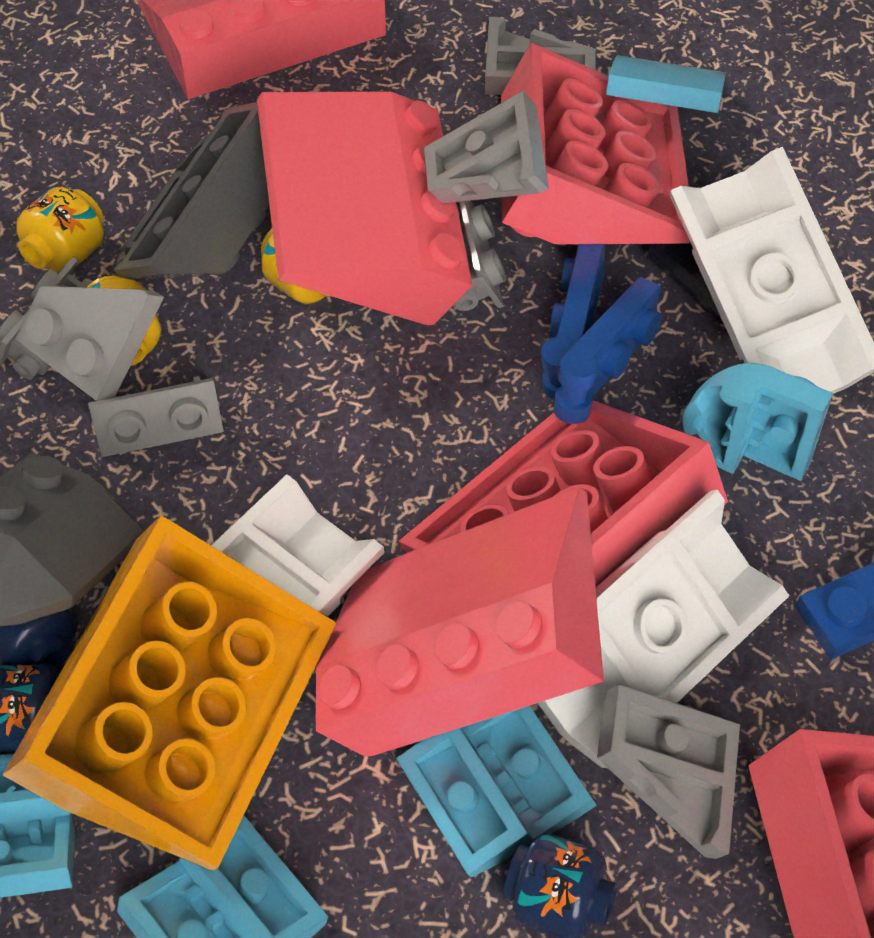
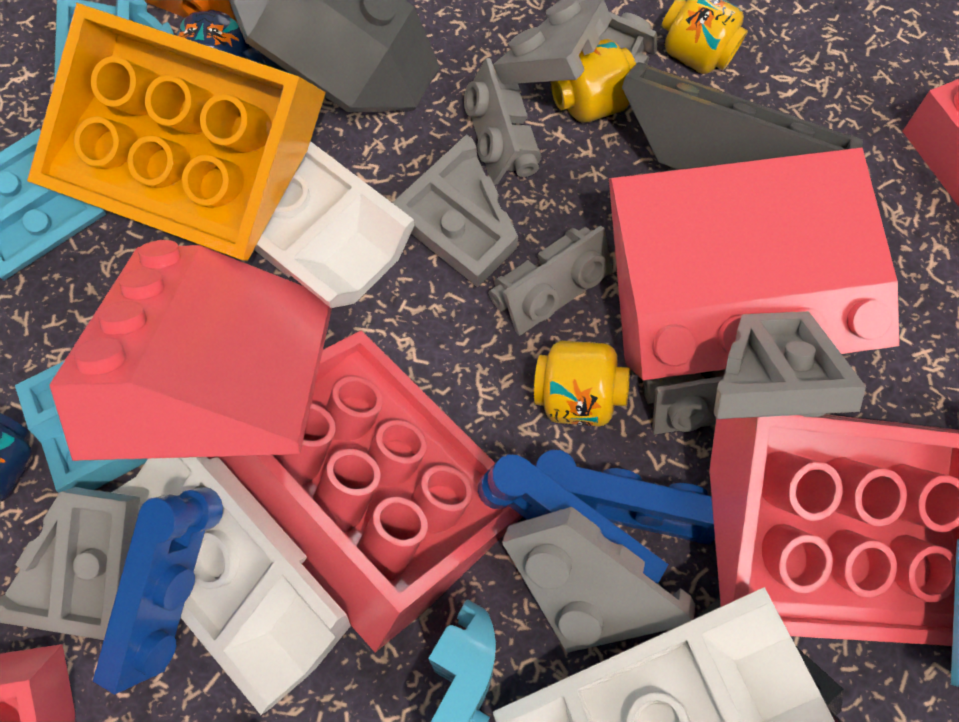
camera: 90 degrees right, 10 degrees up
(267, 444) = (460, 214): none -> light grey wing
(361, 386) = (568, 269): none -> light grey hinge
(465, 344) = (580, 383): none -> yellow head
(661, 327) = (588, 584): none -> light grey wing
(694, 654) = (155, 587): none -> blue plate

